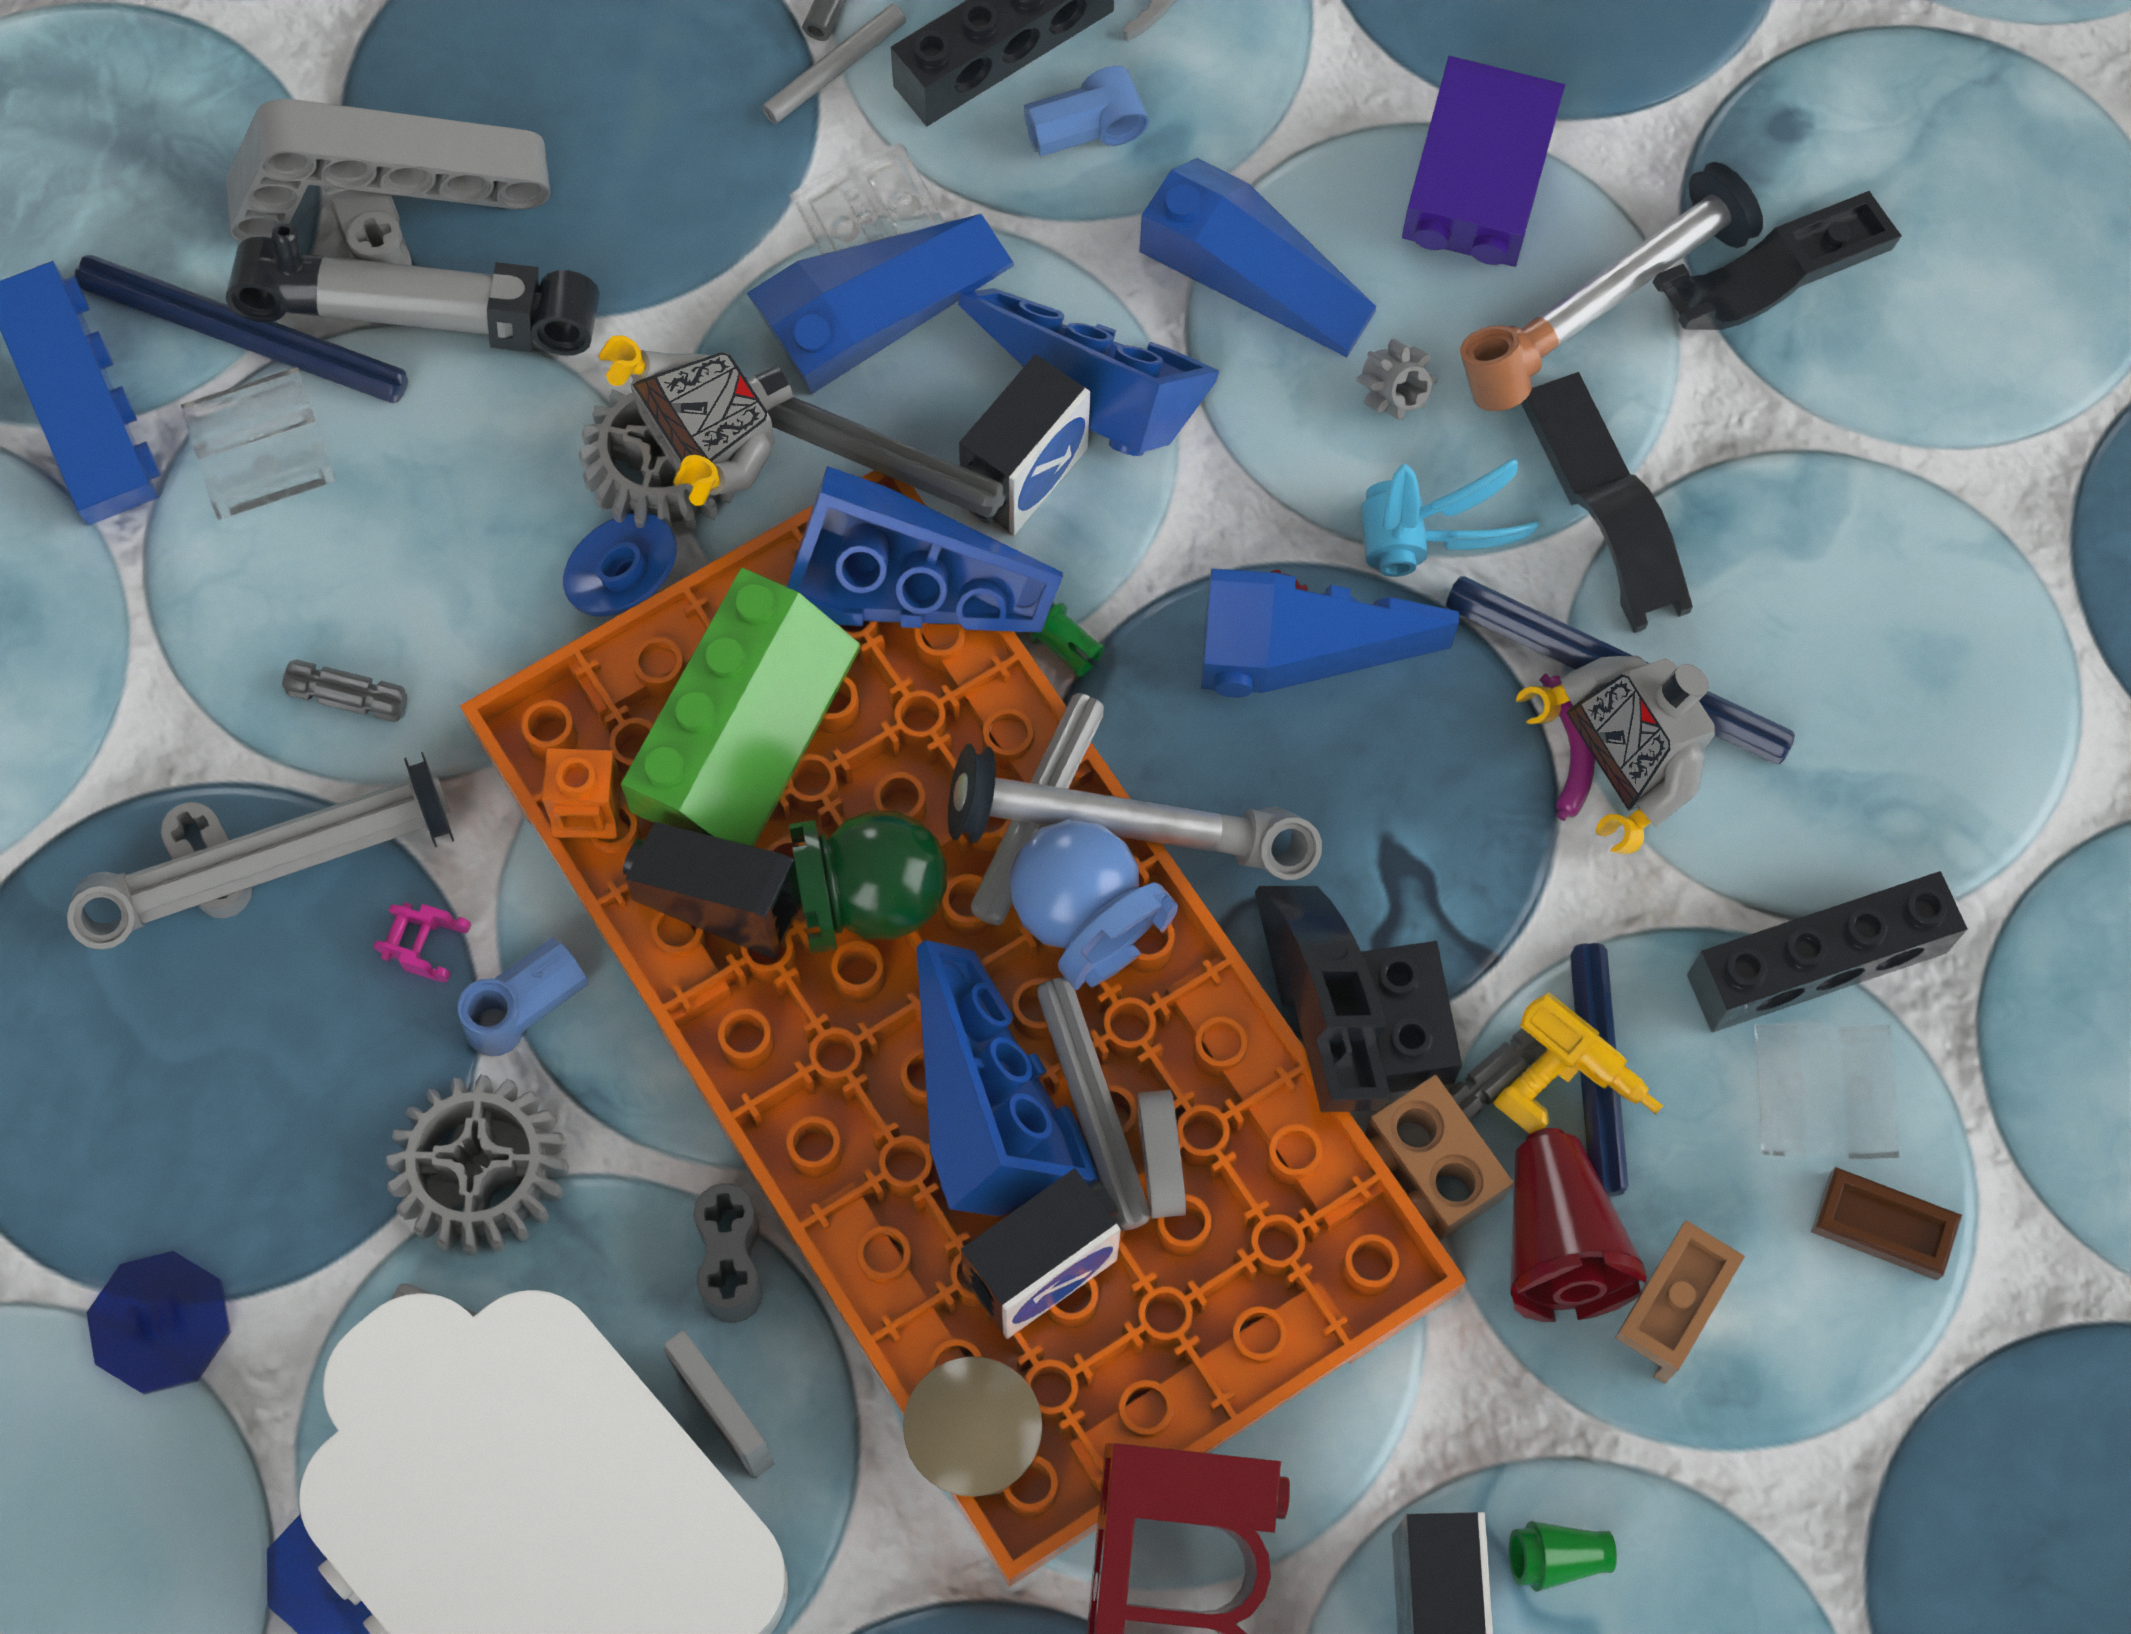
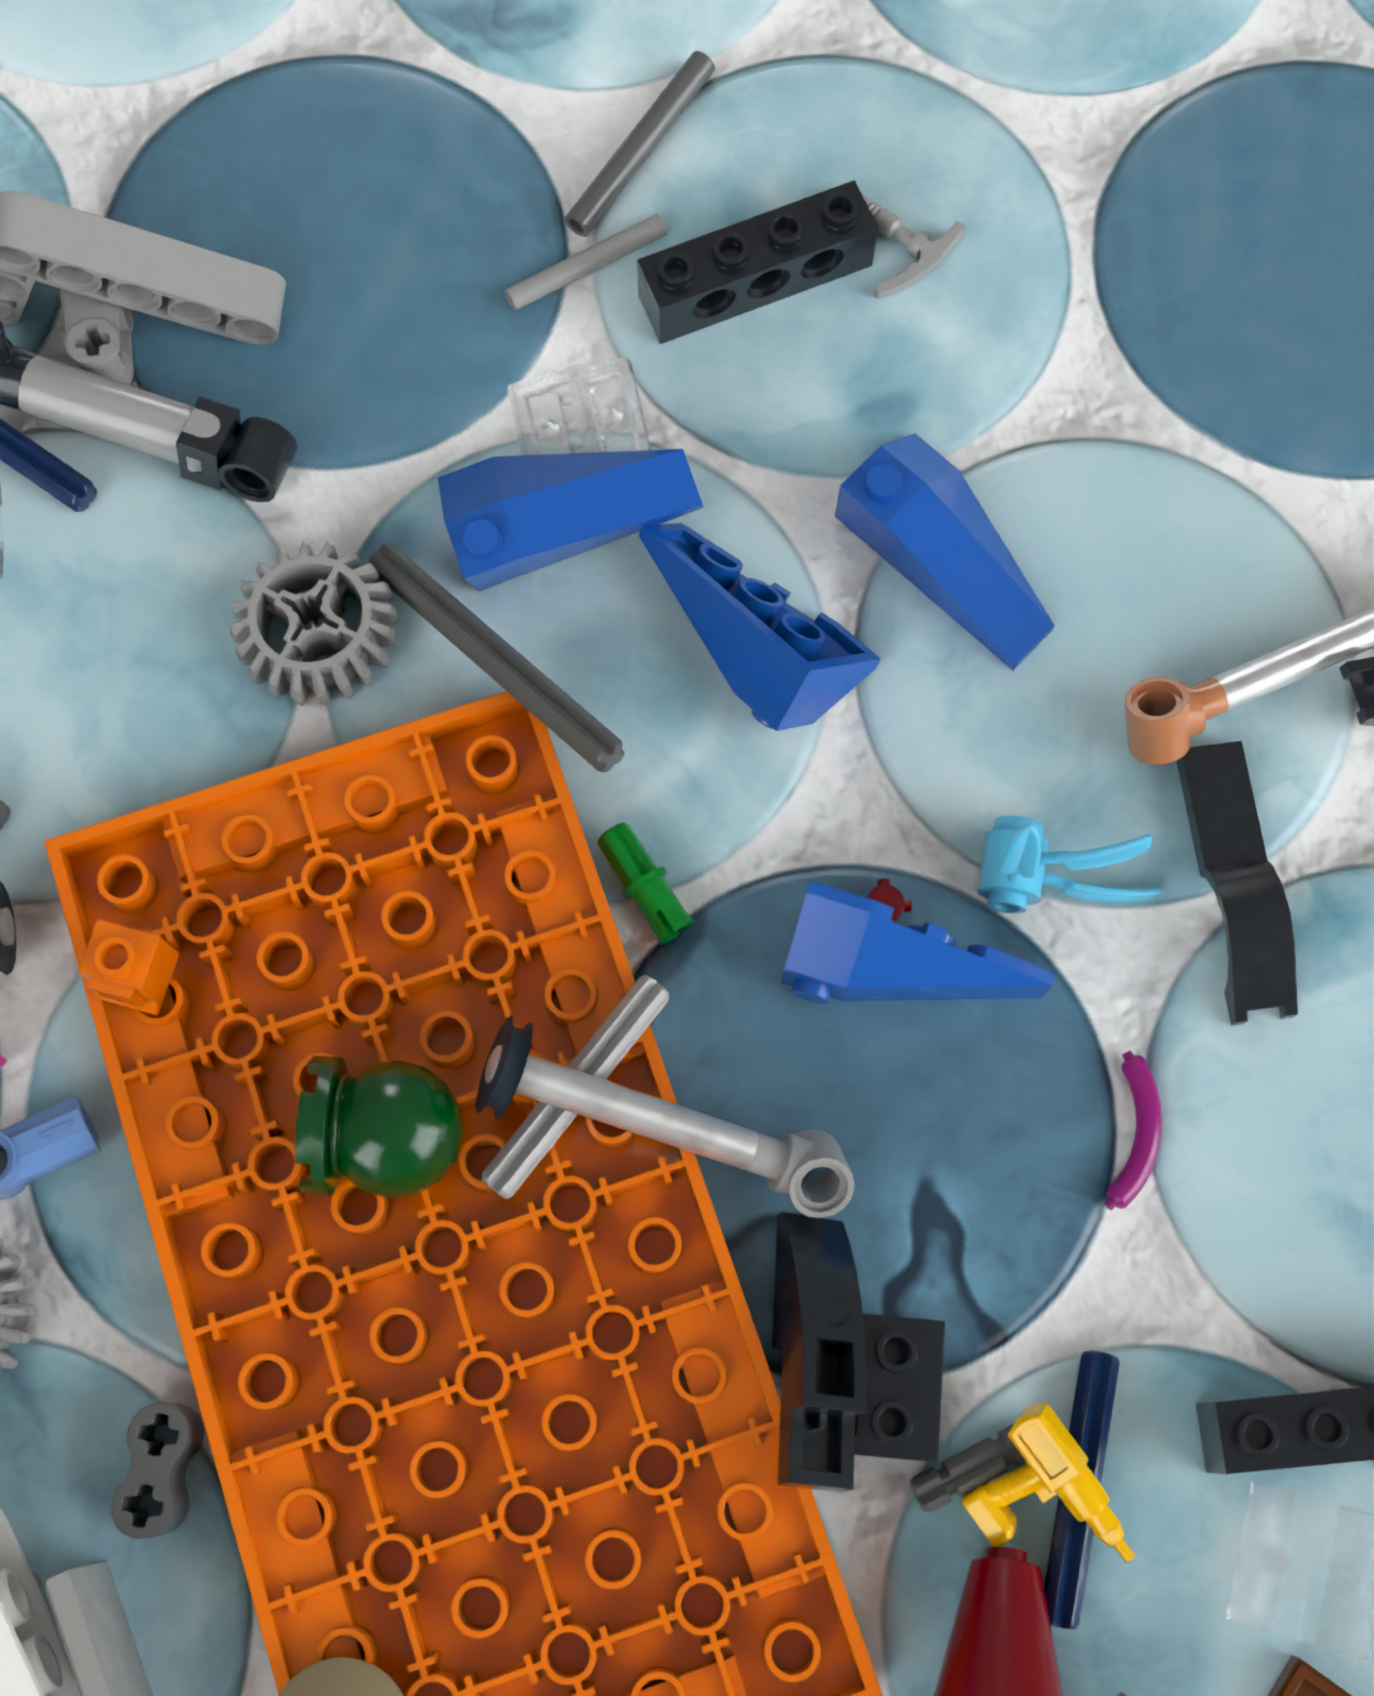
camera: 15 degrees right, 5 degrees up
(619, 565) = (241, 729): blue dish -> none
(702, 413) = (348, 600): torso -> none
(716, 885) = (224, 1096): black slope -> none
(741, 713) = (305, 922): bright green slope -> none
(902, 562) = (500, 791): blue wedge -> none
(988, 1113) = (443, 1402): blue wedge -> none
(1028, 439) = (665, 695): black piece -> none
(1042, 1251) = (447, 1582): black piece -> none
(1083, 894) = (590, 1198): medium blue tile -> none
(1093, 1102) = (550, 1417): light grey axle -> none
(1101, 109) = (832, 365): medium blue piece -> none
(1161, 1154) = (602, 1491): light grey beam -> none
(1396, 379) = (1055, 709): light grey gear -> none
(1452, 1151) = (904, 1541): medium nougat brick -> none
(1482, 161) = (1198, 503): dark purple slope -> none
(1579, 649) = (1209, 1066): dark blue axle -> none
(1641, 730) = (1212, 1142): light grey torso -> none

